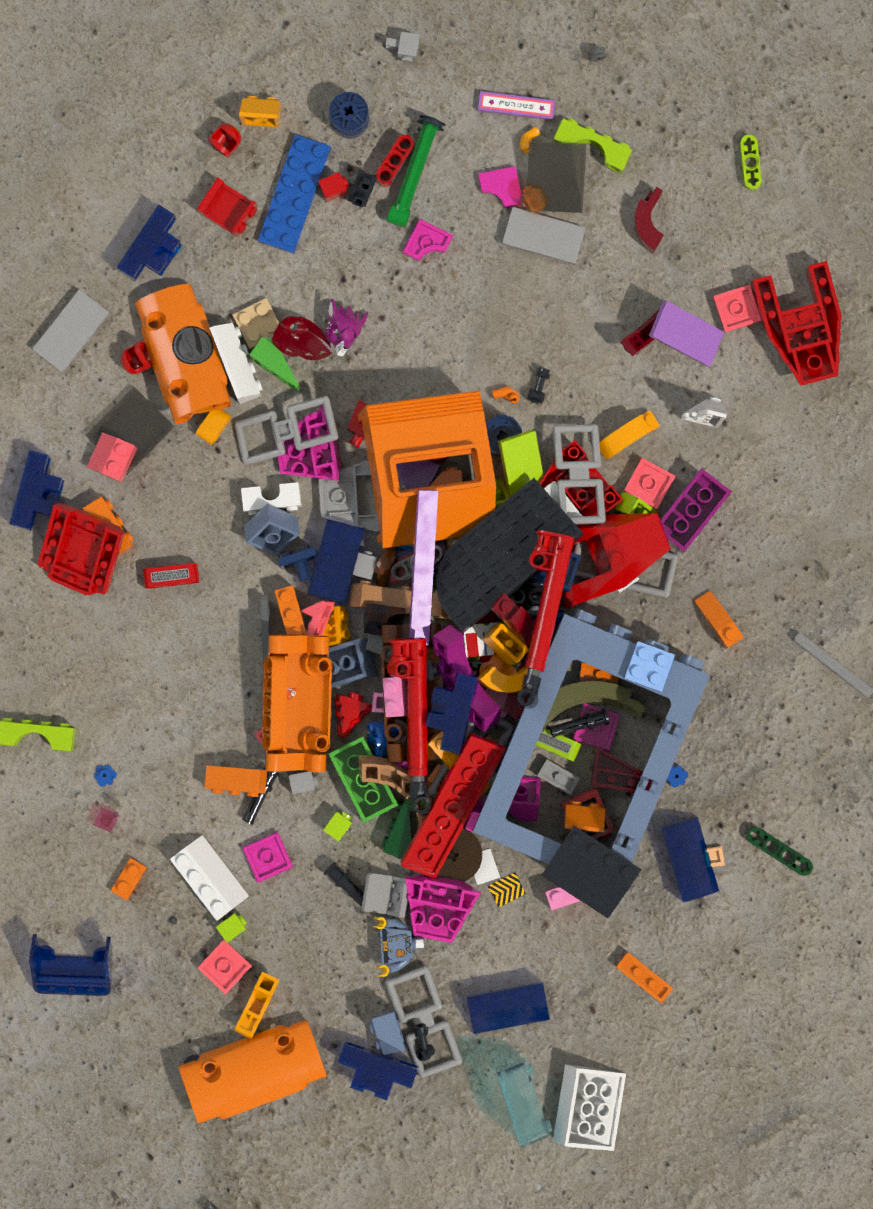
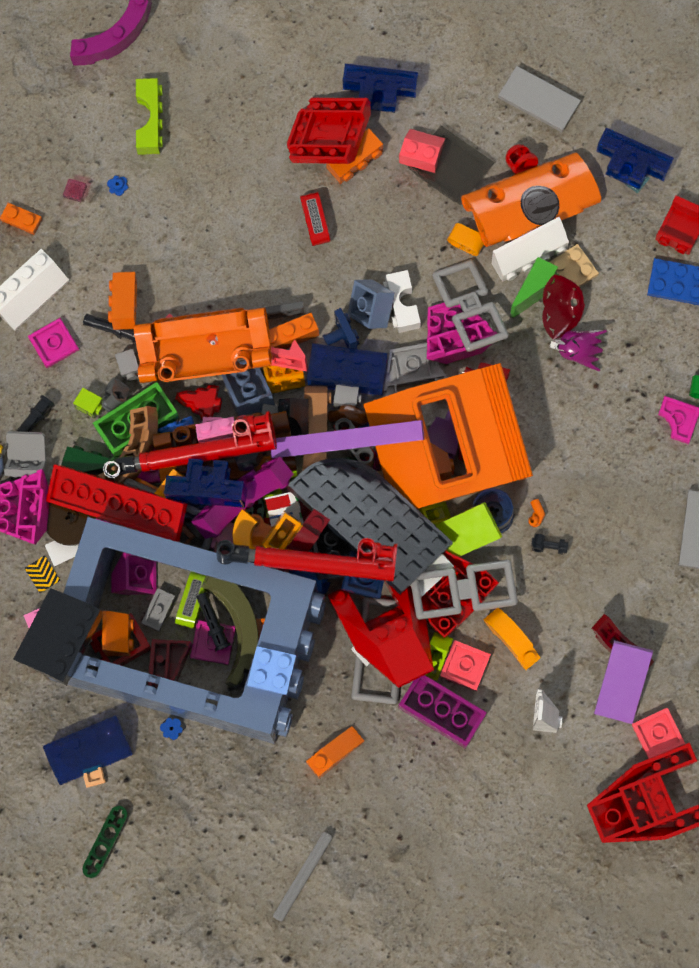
camera: 85 degrees right, 10 degrees down
(334, 798) = (115, 394): none -> dark grey piece

